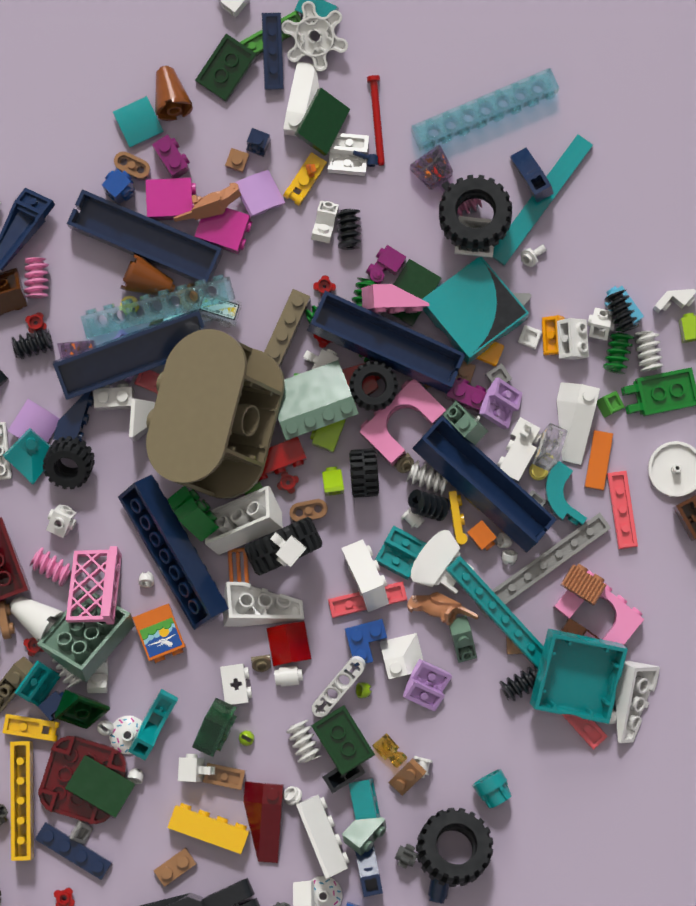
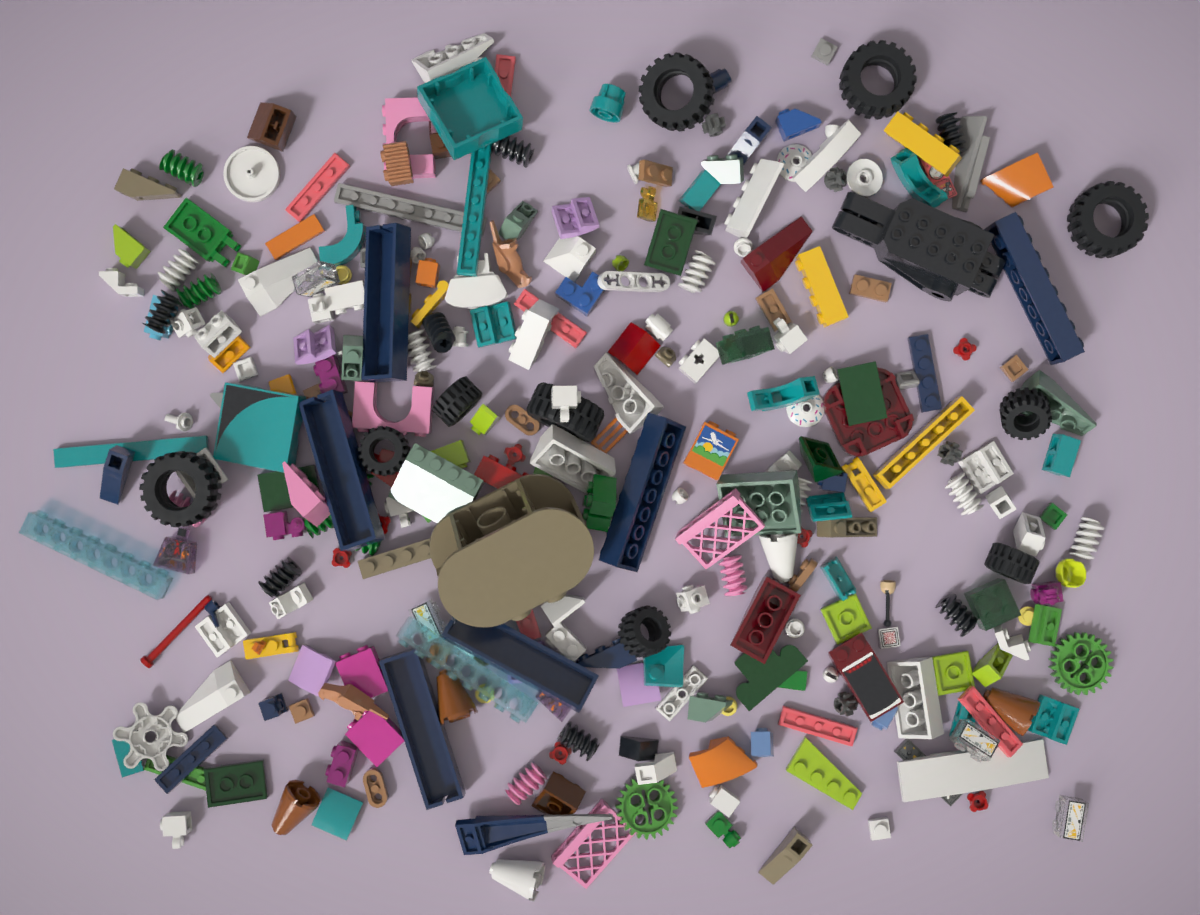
camera: 130 degrees left, 5 degrees up
(108, 724) = (812, 429): white hinge -> none
(118, 186) = (399, 783): blue brick -> none
(322, 121) = (213, 671): dark green tile -> none
(498, 372) = (294, 369): light grey plate -> none

